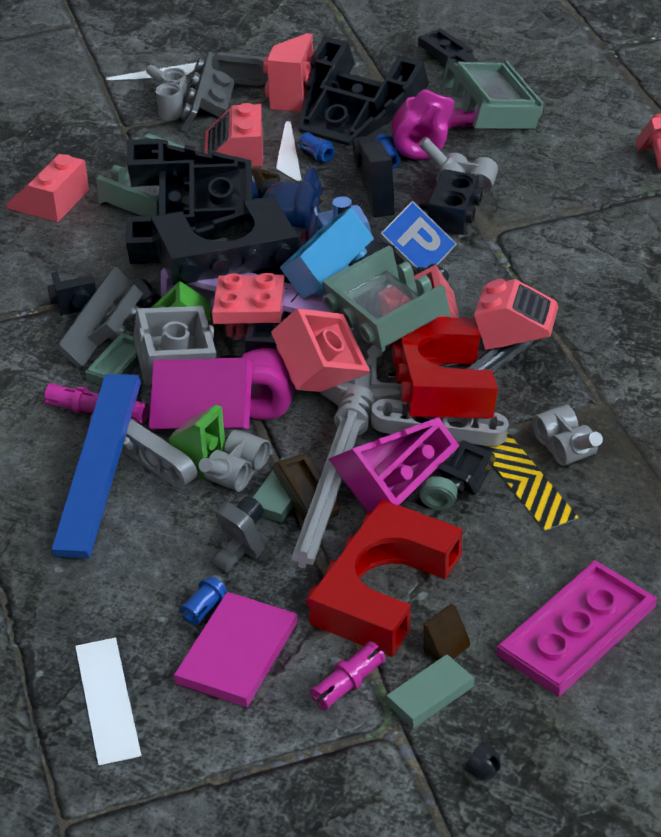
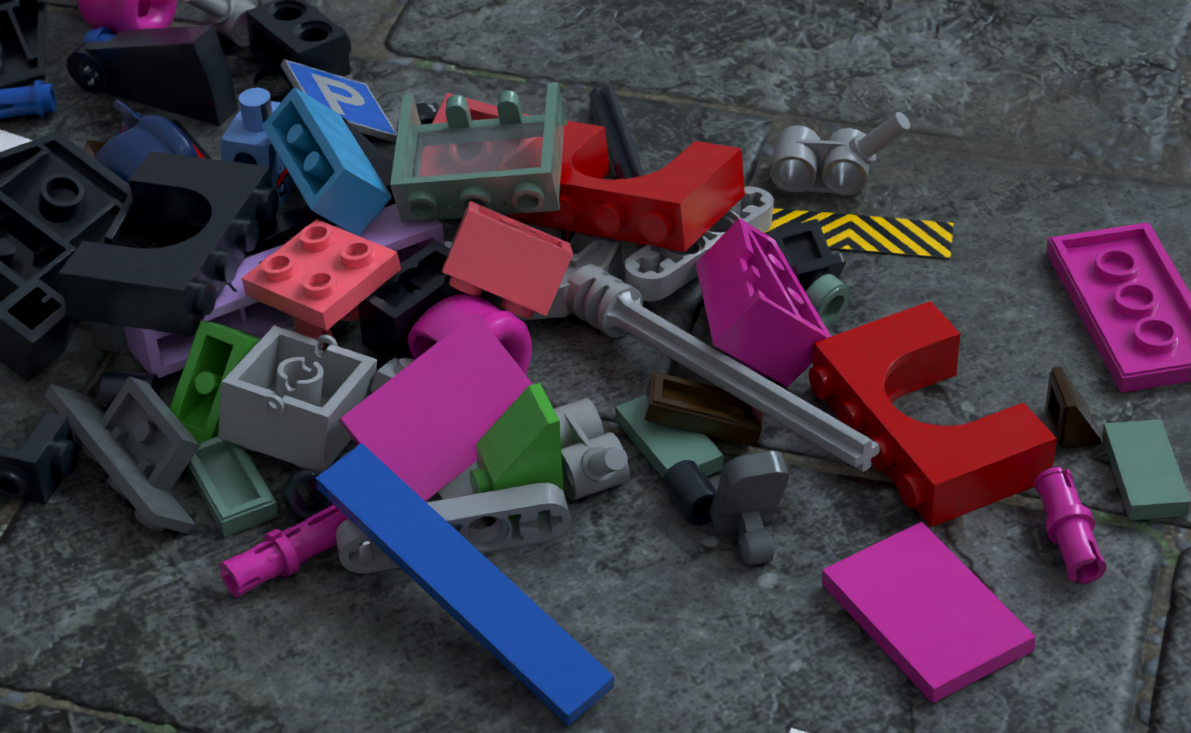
camera: 55 degrees left, 0 degrees up
(203, 600) = (810, 590): blue pin -> none
(513, 314) = (593, 86): coral slope -> none

